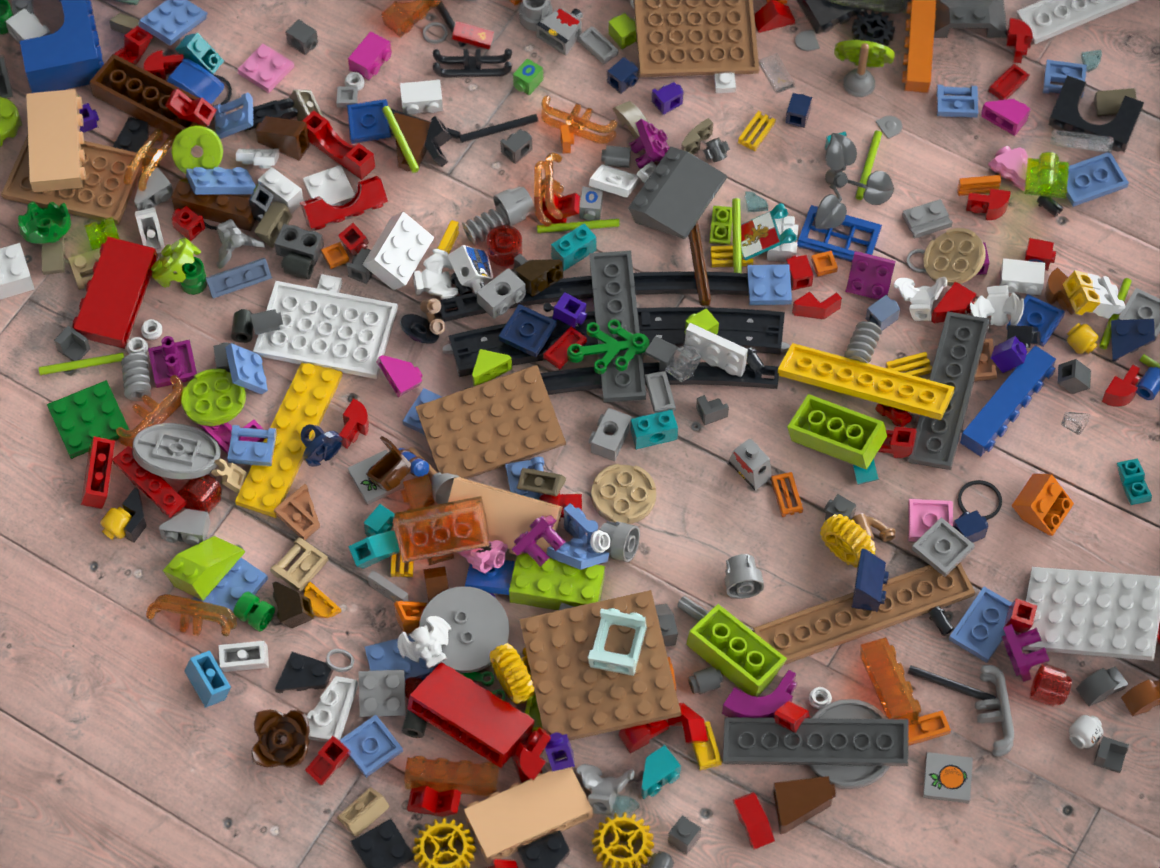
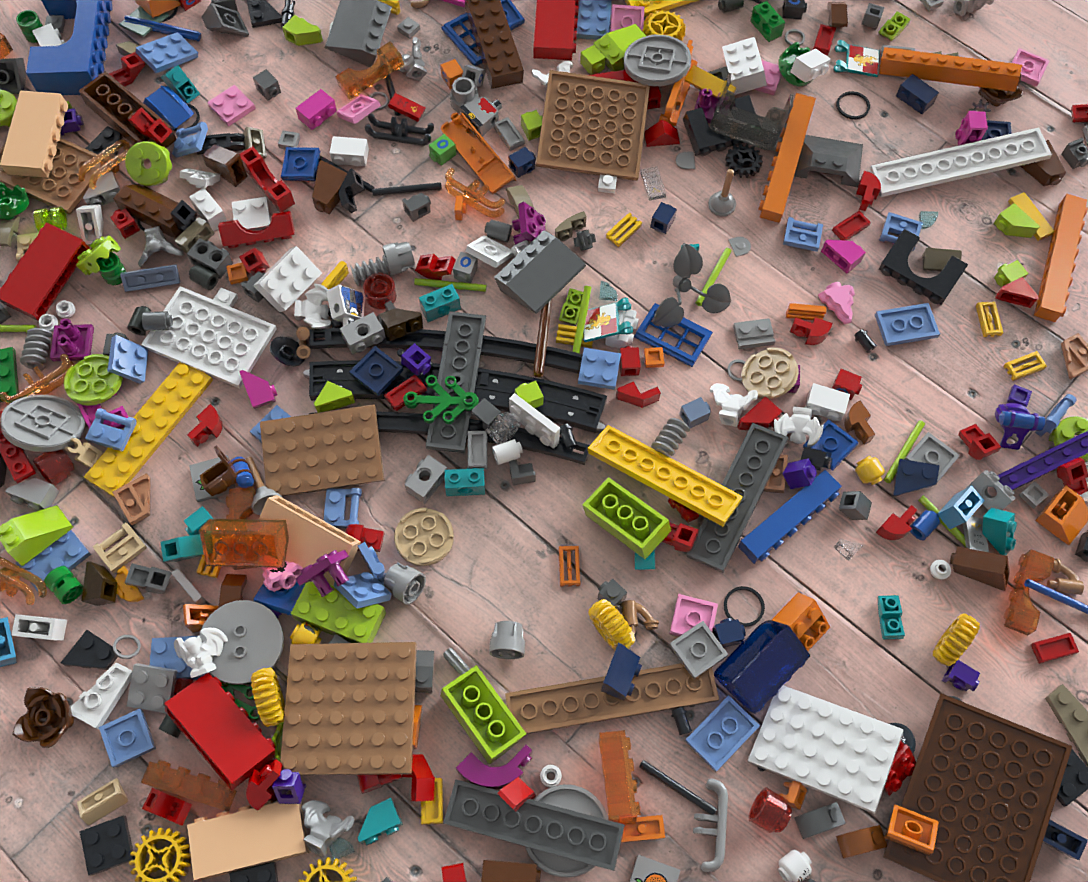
camera: 10 degrees right, 5 degrees up
(162, 65) = (144, 87): red brick -> none
(220, 181) = (157, 191): medium blue plate -> none
(322, 447) = (169, 442): dark blue tile -> none
(328, 760) = (81, 746): red brick -> none
(347, 589) = (151, 579): none -> dark grey brick
(354, 77) = (299, 127): white plate -> none
(400, 139) = (318, 183): lime piece -> none
(417, 46) = (358, 109): none -> bright pink plate
(526, 609) = (305, 634): none -> yellow head
(540, 482) = (349, 513): dark tan slope -> none
(546, 188) = (429, 246): clear orange piece -> none
(569, 73) = (477, 153): none -> orange piece
(600, 541) = (386, 585): white plate -> none
(611, 661) = (360, 708): light aqua window -> none
(668, 97) = (555, 187): dark purple brick -> none
(693, 388) = (507, 451): none -> white brick
(705, 680) = (448, 736): dark grey brick -> none
(748, 461) = (541, 531): light grey torso -> none
(870, 275) = (691, 377): magenta plate -> none
(877, 54) = (740, 182): lime tile -> none
(909, 363) = (714, 459): yellow tile -> none
(1012, 550) = (762, 664): none -> clear blue windscreen
(1020, 662) = (744, 763): magenta plate -> none
(1021, 615) = (756, 736): brick -> none
(1047, 176) = (868, 315): clear neon green plate -> none
(1072, 665) = (796, 794): none -> orange tile
(1082, 141) = (905, 289): clear slope -> none
(1093, 294) = (887, 432): hips -> none

